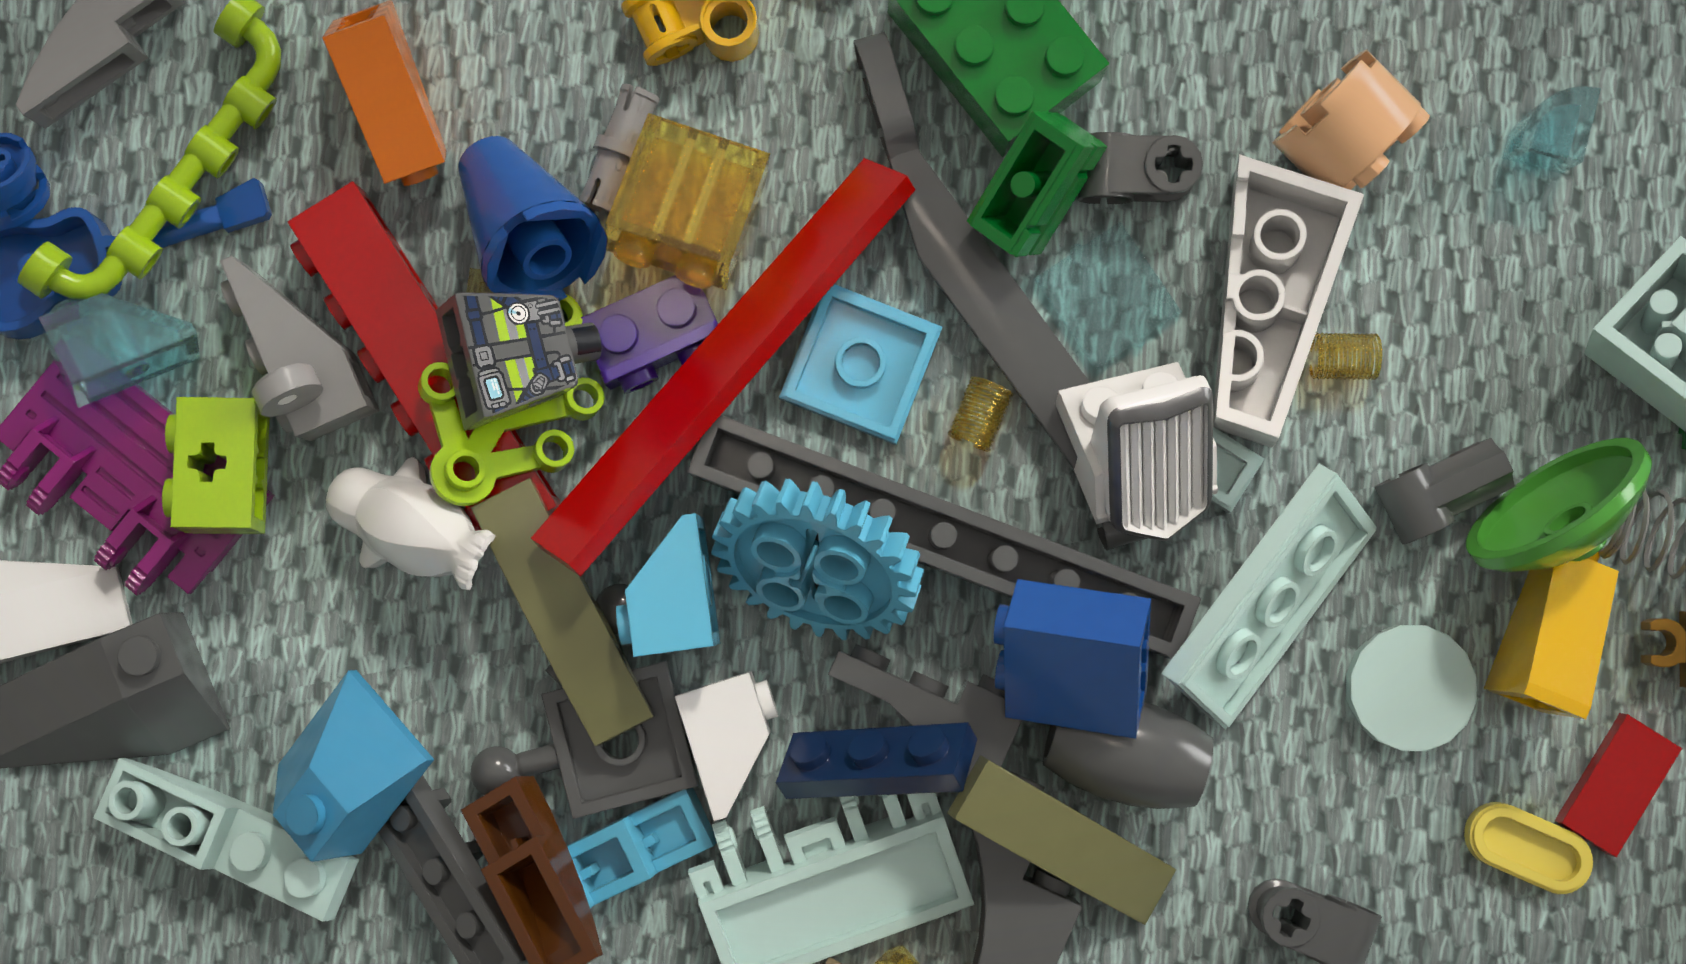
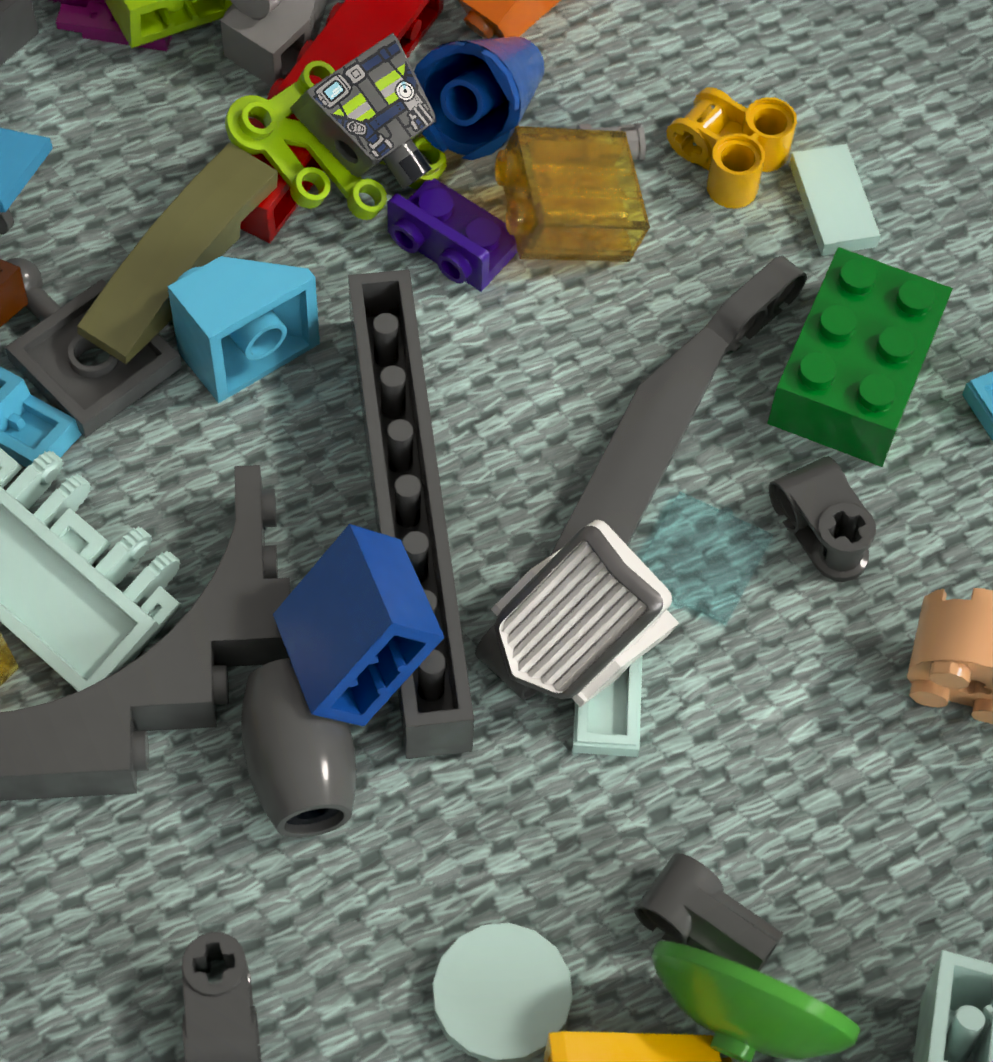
camera: 60 degrees right, 25 degrees down
(407, 523) = (190, 113): white animal -> none
(722, 366) = (456, 265): red tile -> none
(726, 733) = (136, 429): white slope -> none
(860, 363) = (522, 394): medium azure tile -> none
(860, 566) = (329, 400): medium azure gear -> none
(877, 761) = (178, 533): dark blue plate -> none
(991, 424) = (545, 493): clear yellow piece -> none
(1036, 183) = (757, 429): green brick -> none
(1061, 840) = (182, 723): olive slope -> none
(1271, 597) = (511, 798): light aqua tile -> none
(1275, 291) = (789, 673): white wedge -> none
(1355, 346) = (789, 761): clear yellow piece -> none

